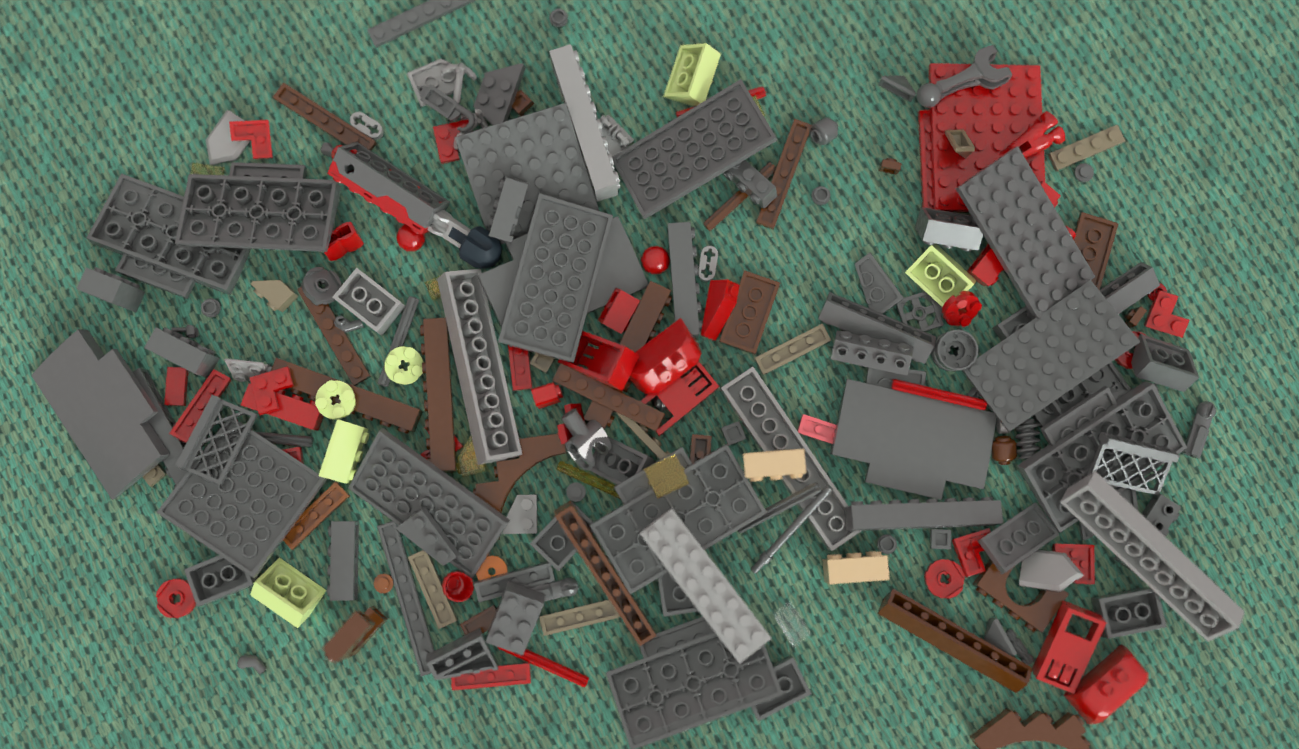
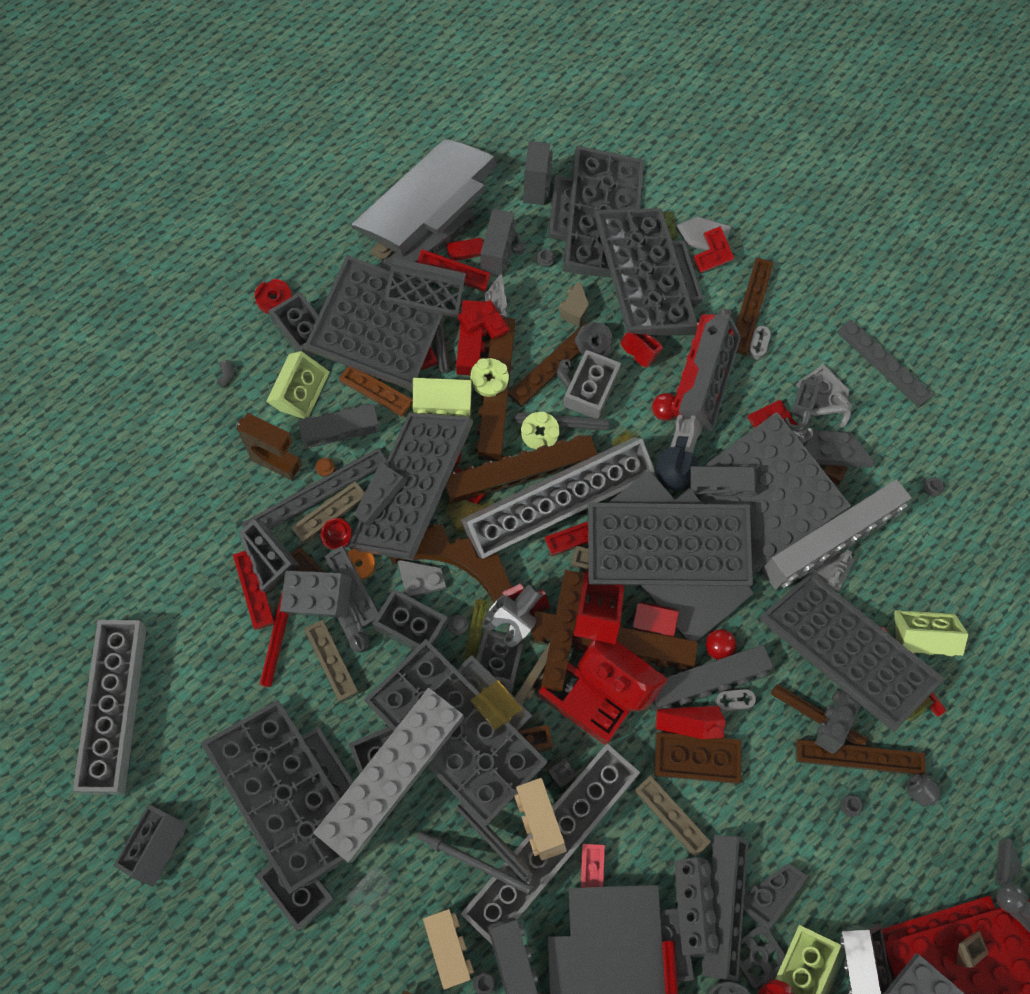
camera: 70 degrees right, 15 degrees down
(547, 395) = (548, 568): red brick -> none
(604, 572) = (388, 658): reddish brown brick -> none
(890, 166) = (913, 876): reddish brown plate -> none

